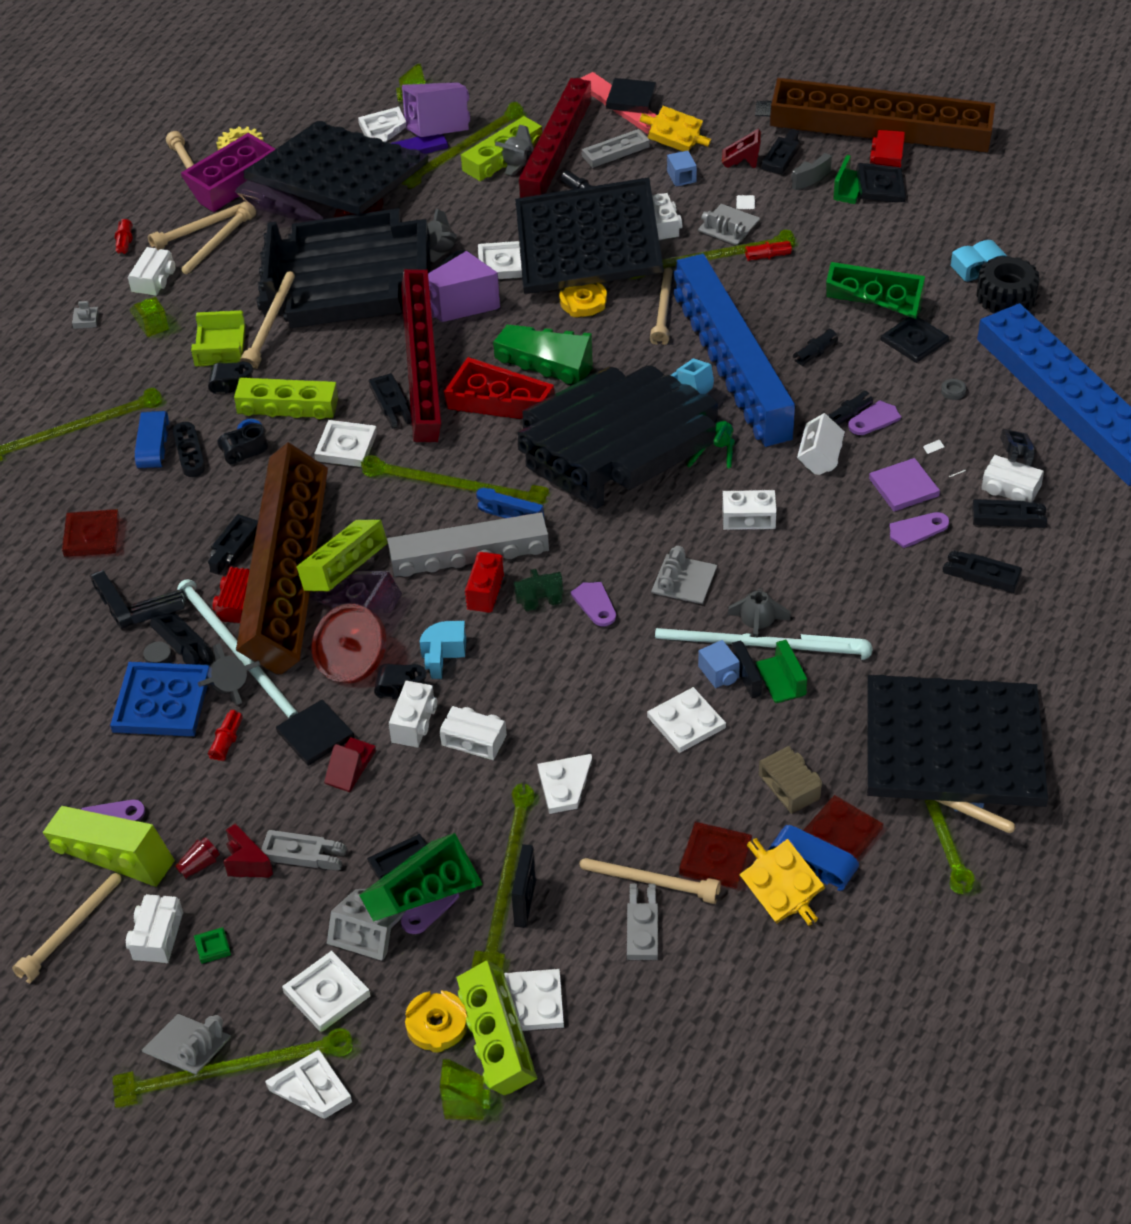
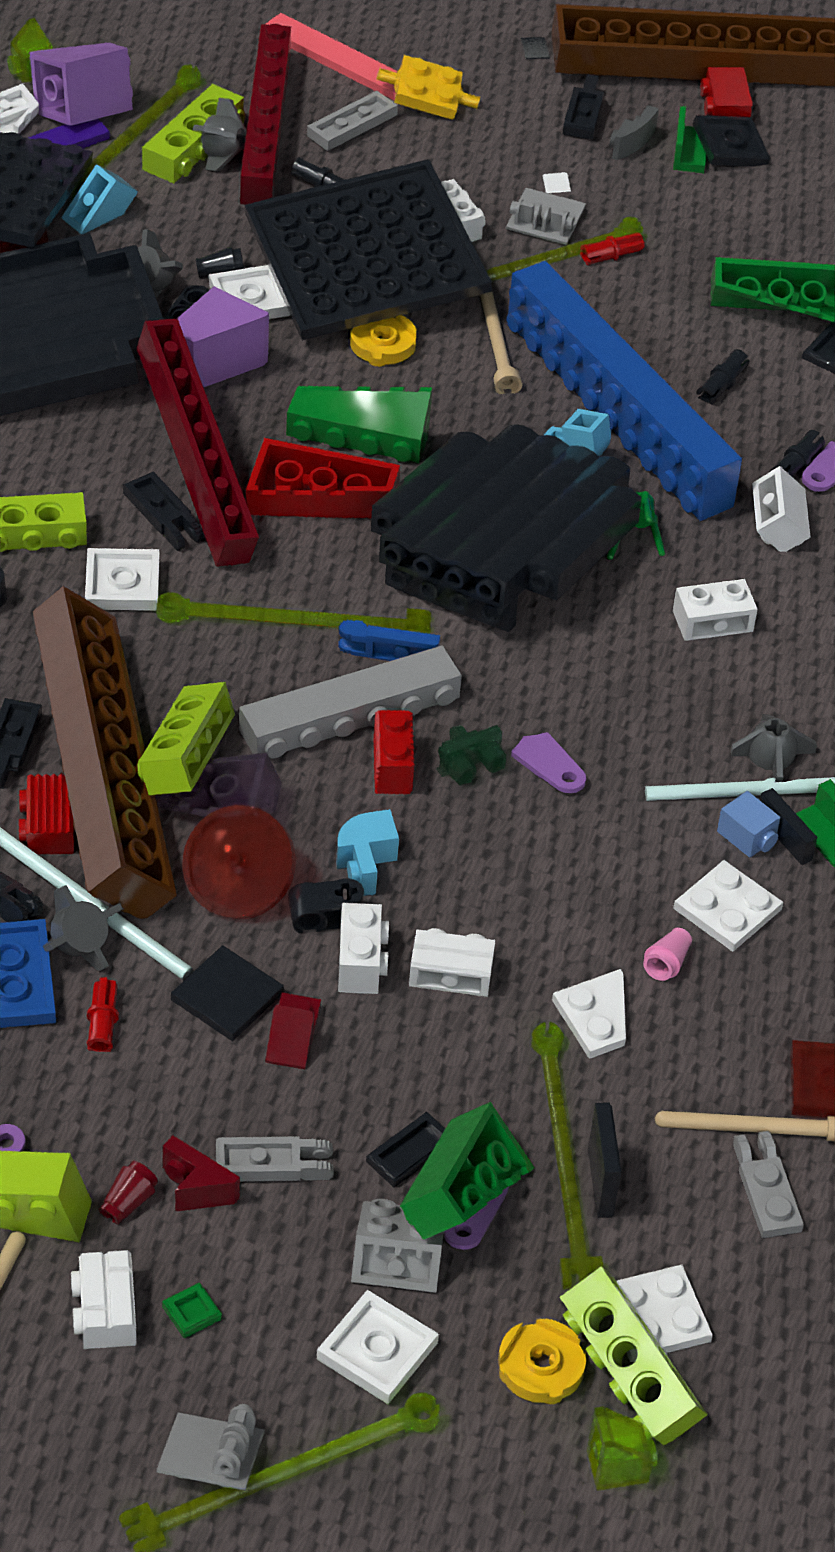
camera: 20 degrees left, 0 degrees up
(311, 1086) = (405, 1478): white wing -> none
(422, 188) = (99, 200): none -> medium azure slope
(491, 235) = (220, 261): none -> black cone
(628, 748) = (667, 954): none -> bright pink cone
(631, 95) = (349, 43): black tile -> none
(681, 168) = (456, 142): medium blue brick -> none
(684, 577) = (657, 712): light grey hinge -> none
(746, 148) = (538, 105): dark red slope -> none

